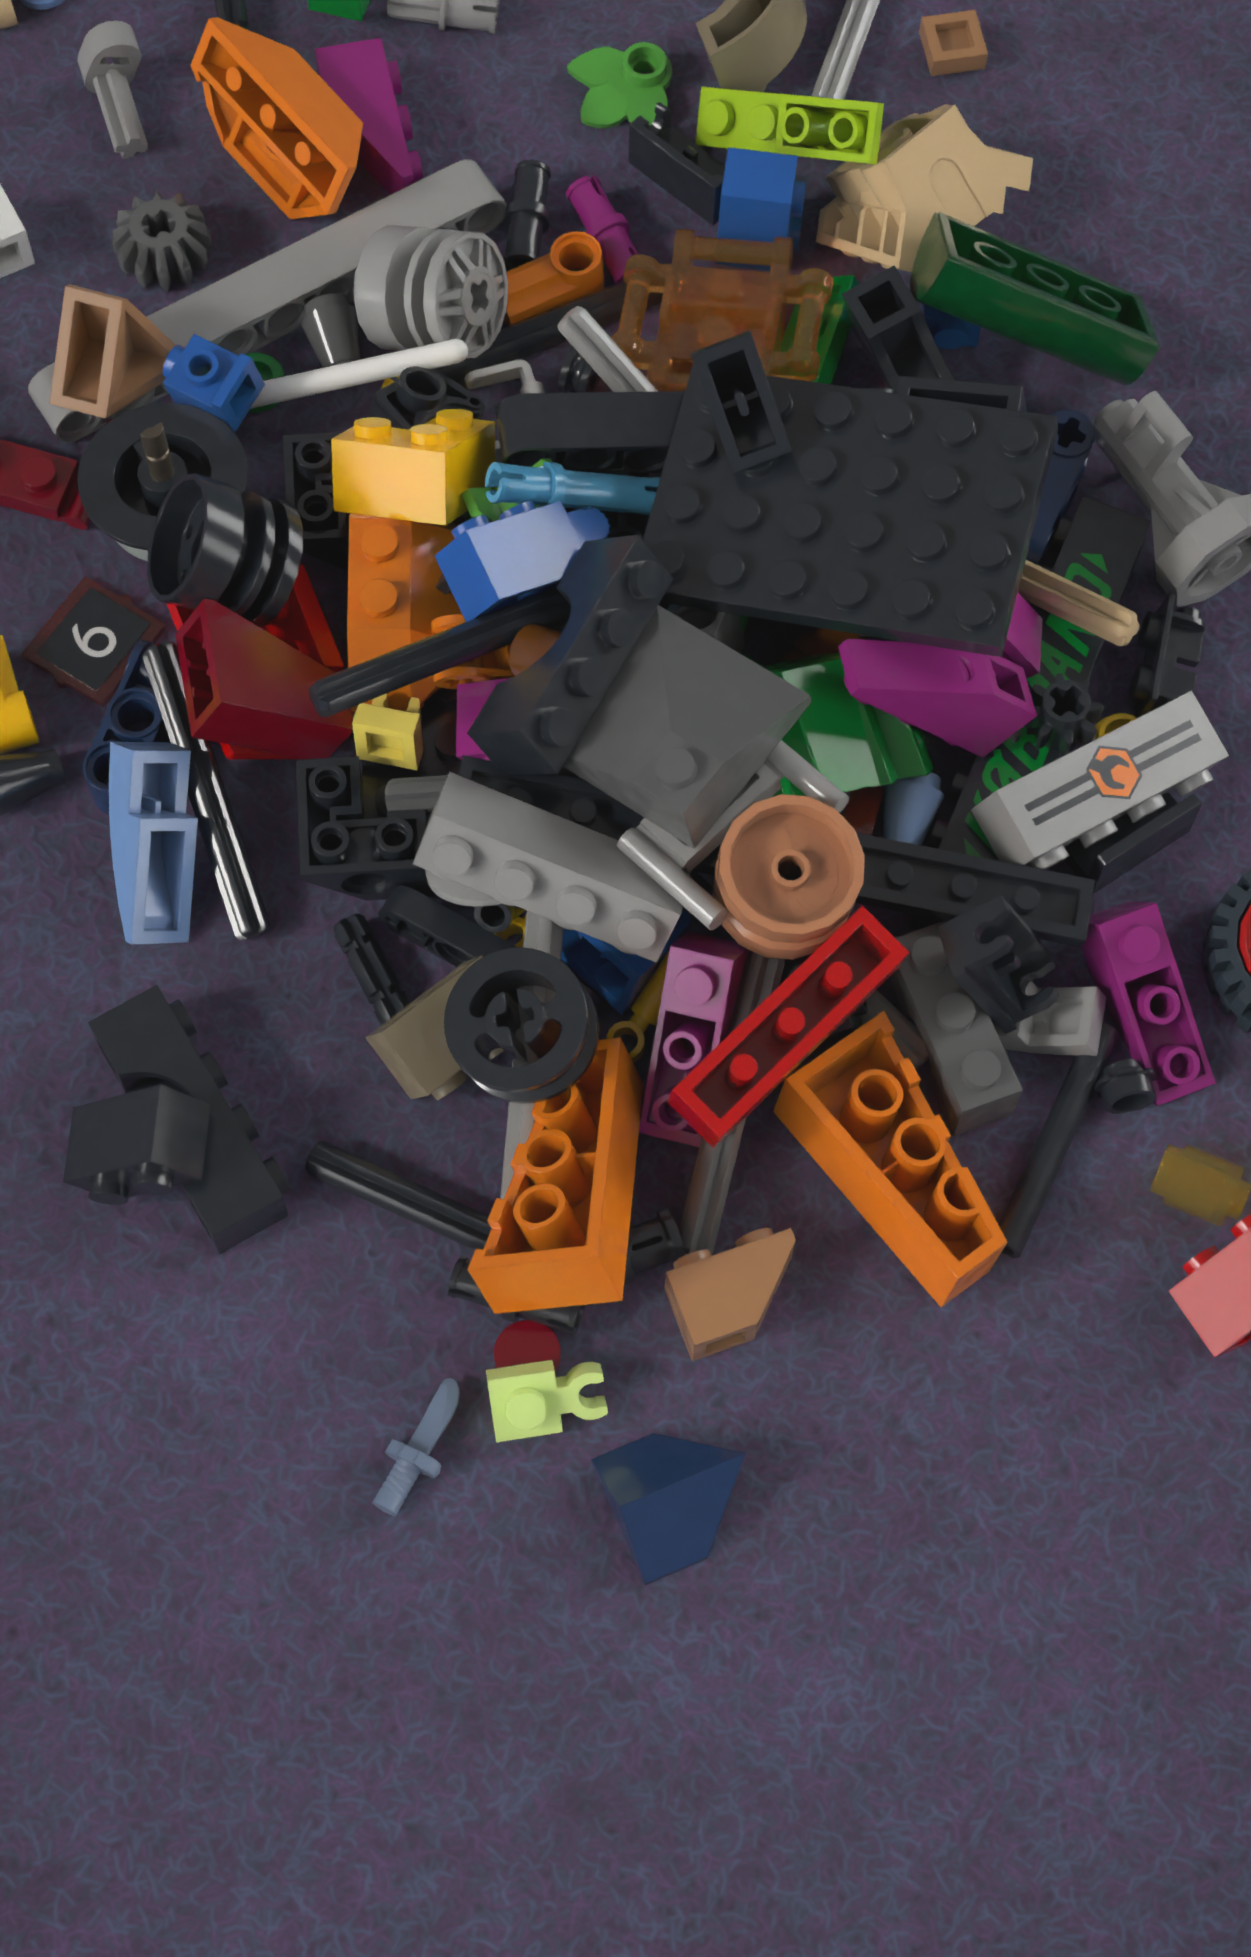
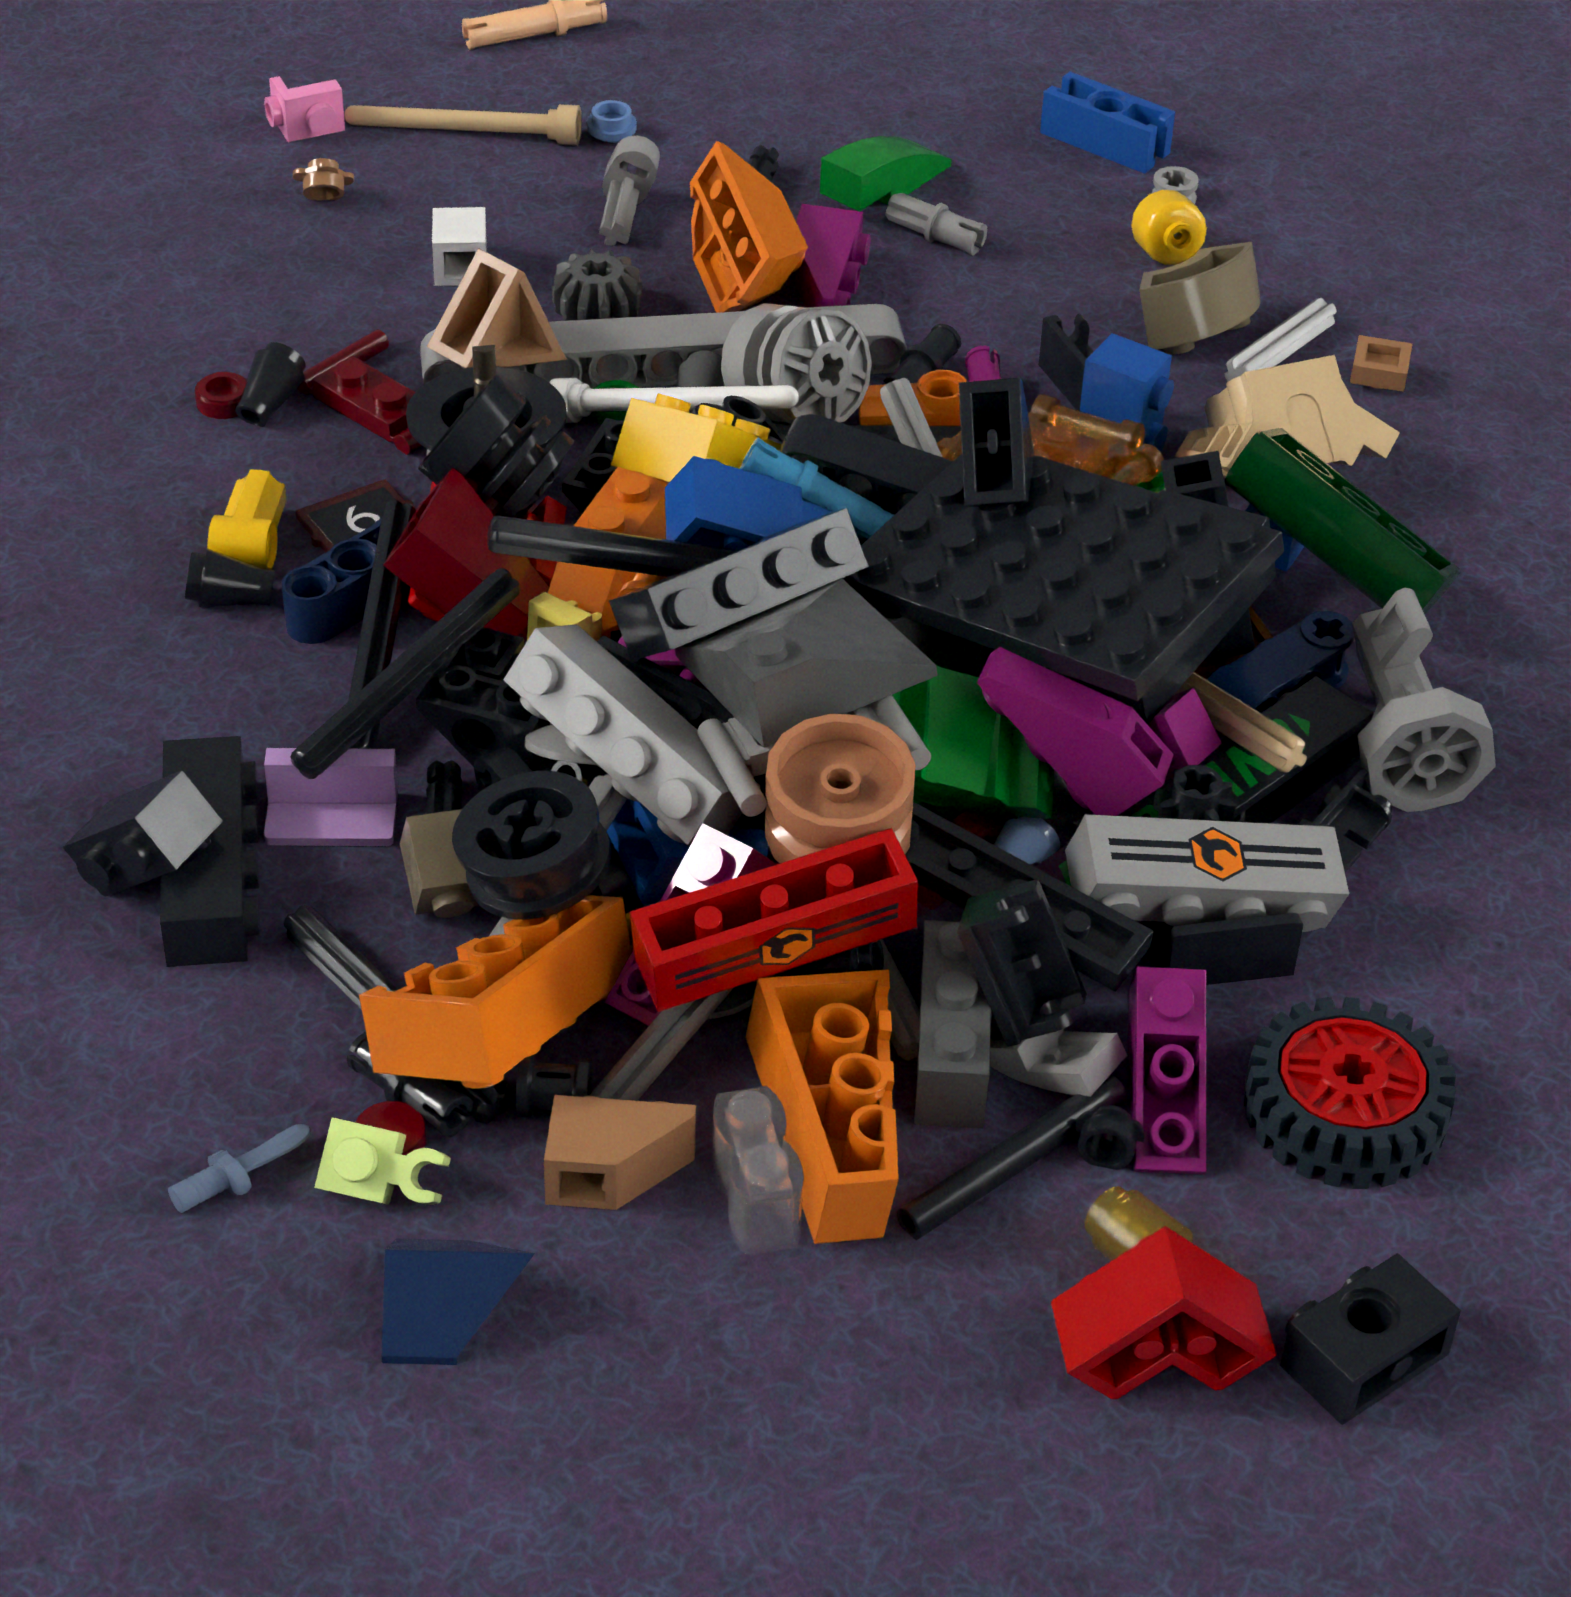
camera: 25 degrees right, 25 degrees down
(152, 840) = (307, 644): medium blue slope -> none
(224, 391) = (564, 354): blue brick -> none
(266, 1007) = (341, 807): none -> lavender panel
(283, 860) = (405, 674): none -> black axle
(617, 87) = (1066, 302): bright green plate -> none
(790, 124) = (1203, 348): lime slope -> none
(853, 1250) = (757, 1170): none -> clear brick

